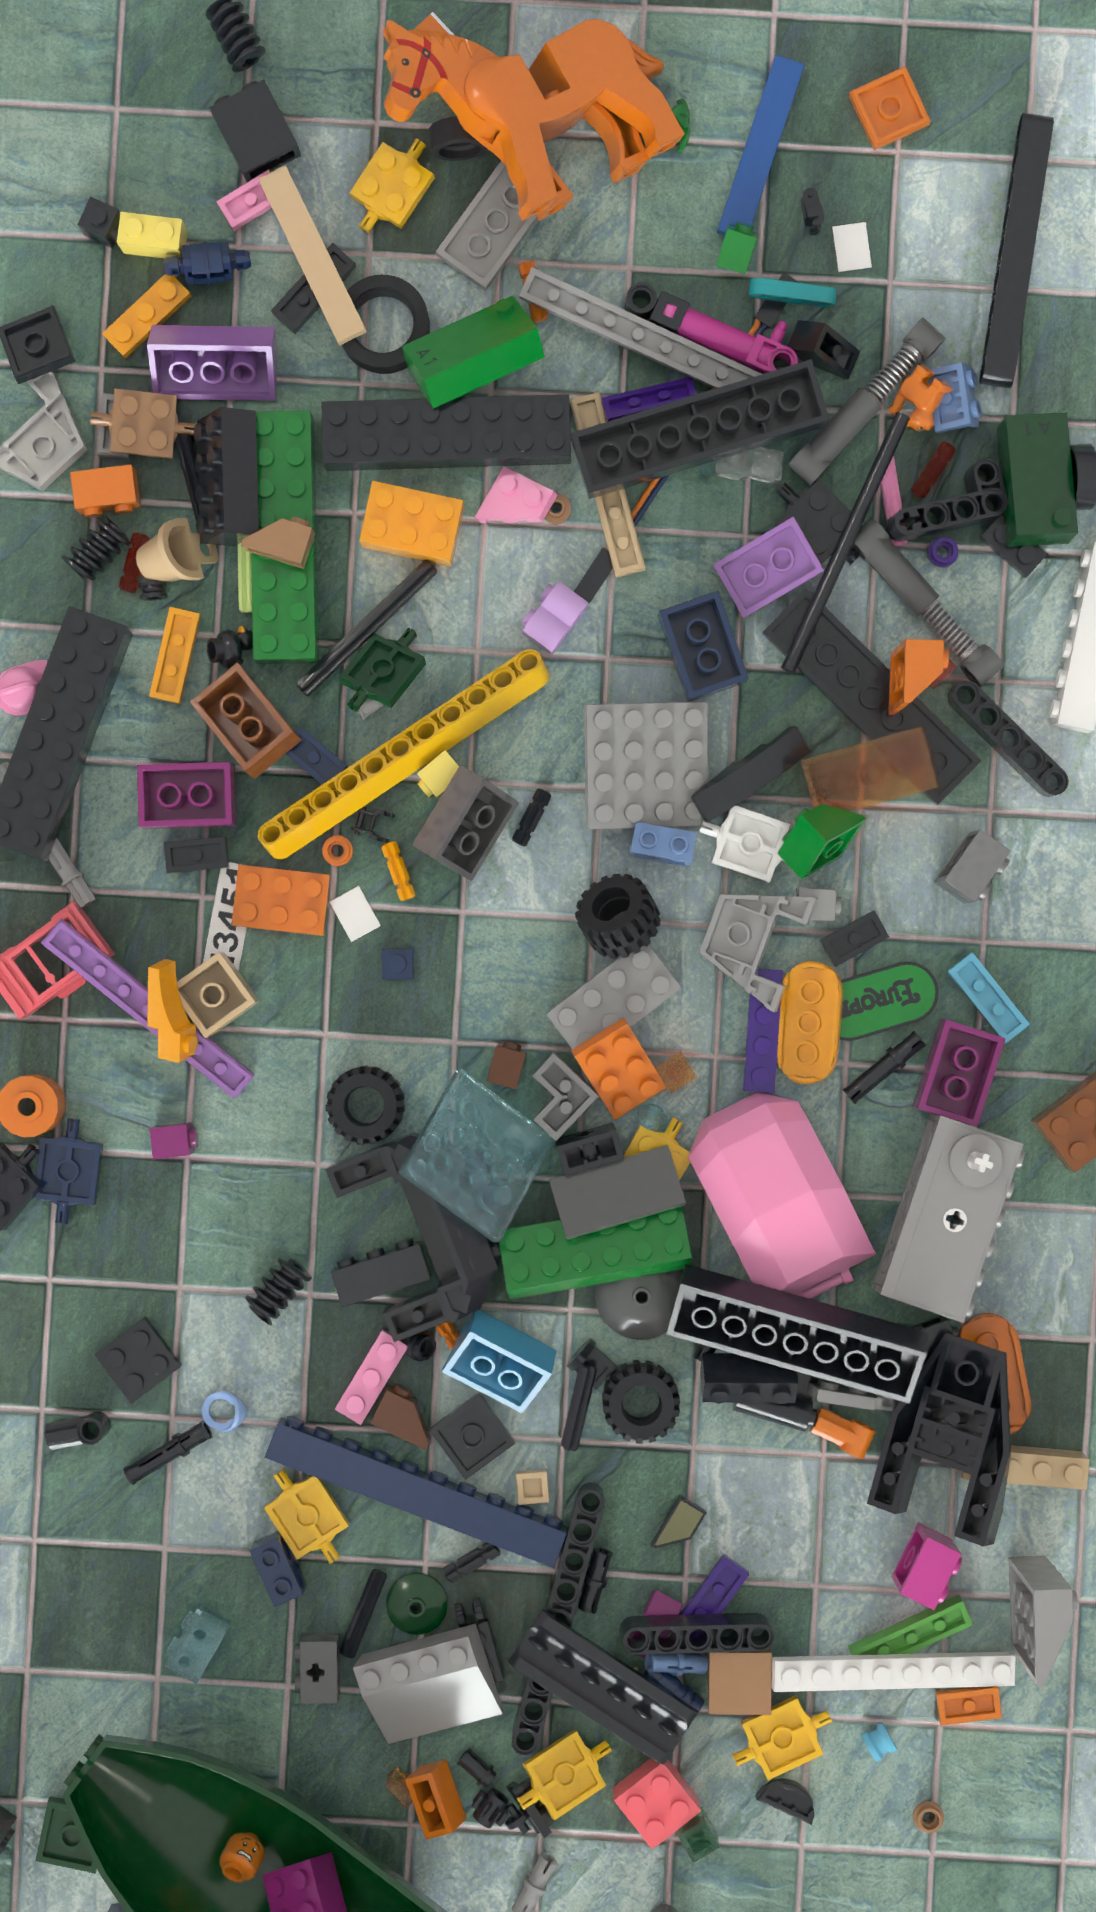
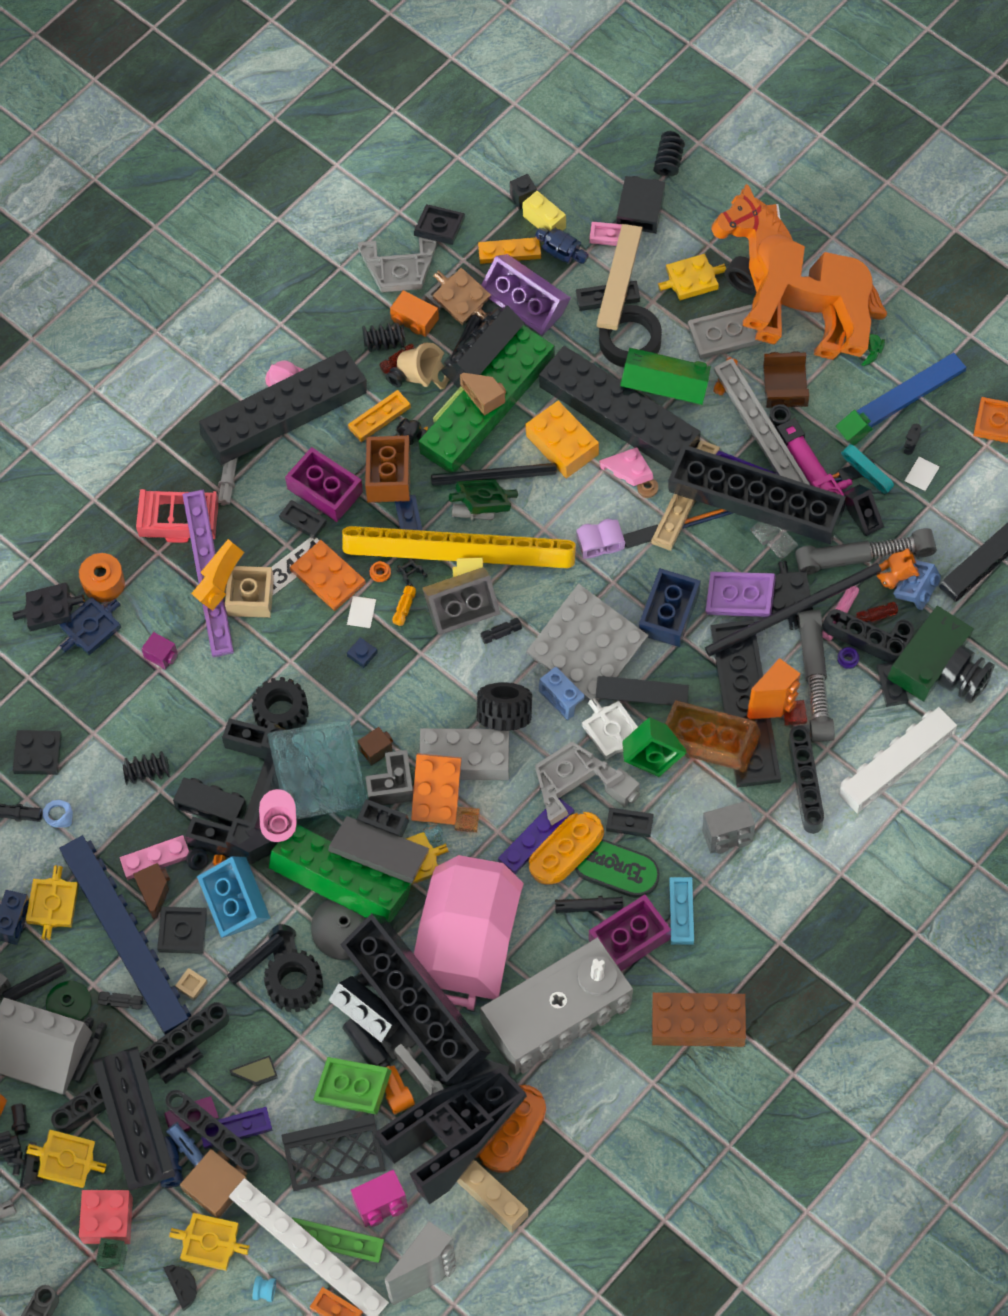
camera: 40 degrees right, 25 degrees down
(488, 1256) = (277, 815): none -> bright pink piece
(607, 244) = (785, 379): none -> reddish brown panel
(798, 1467) = (352, 1085): none -> bright green plate
(808, 1535) = (323, 1134): none -> black fence

